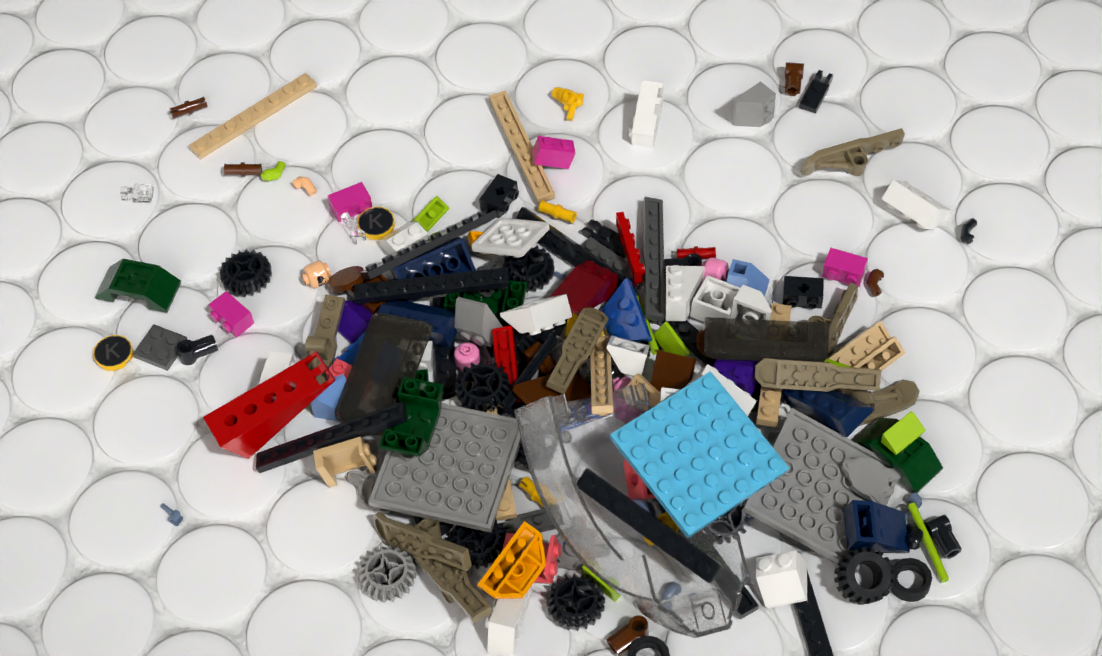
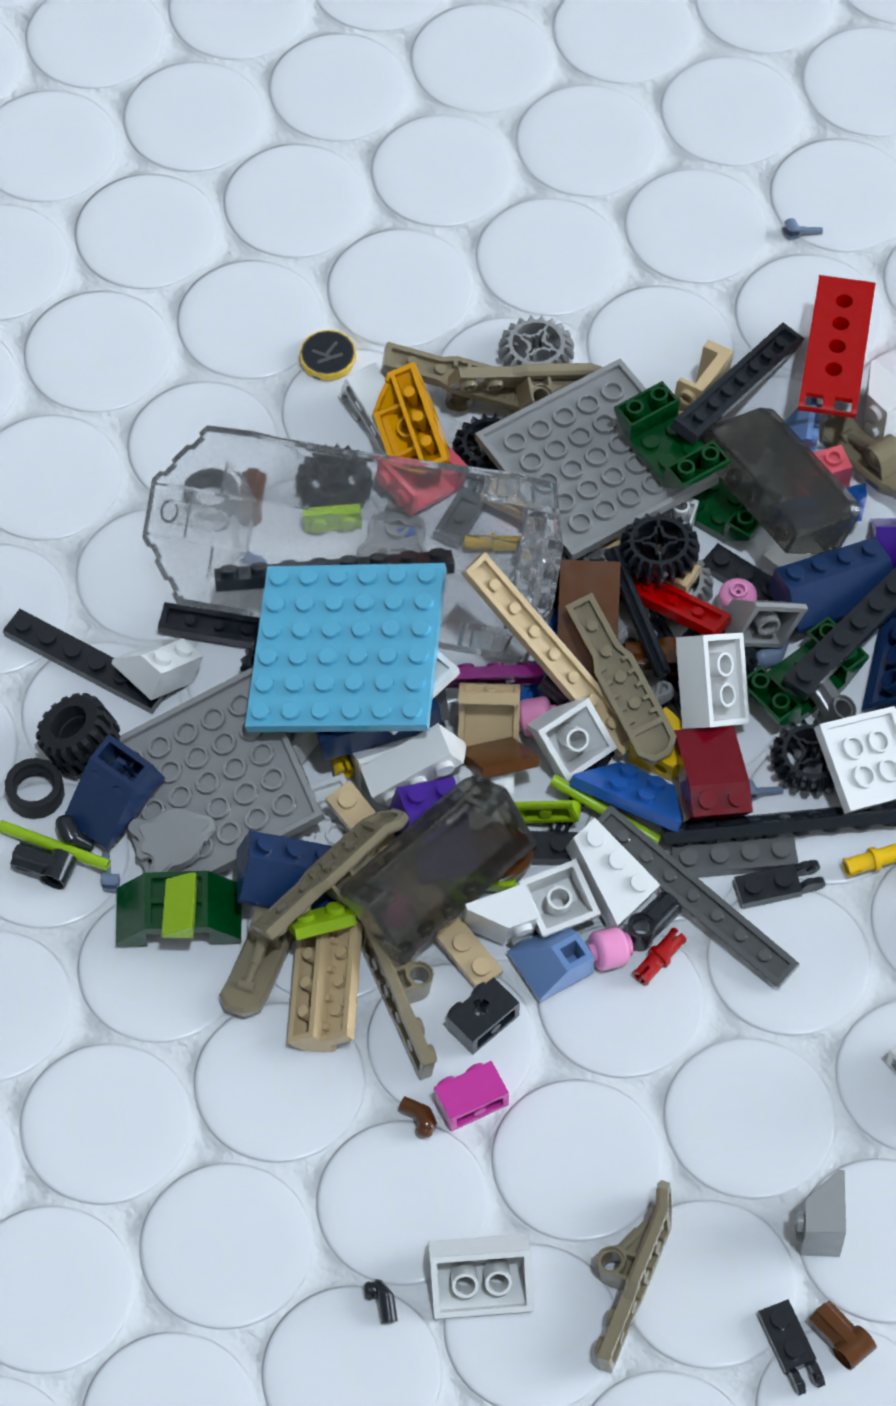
camera: 130 degrees right, 5 degrees up
(628, 240) = (721, 866): red plate -> none

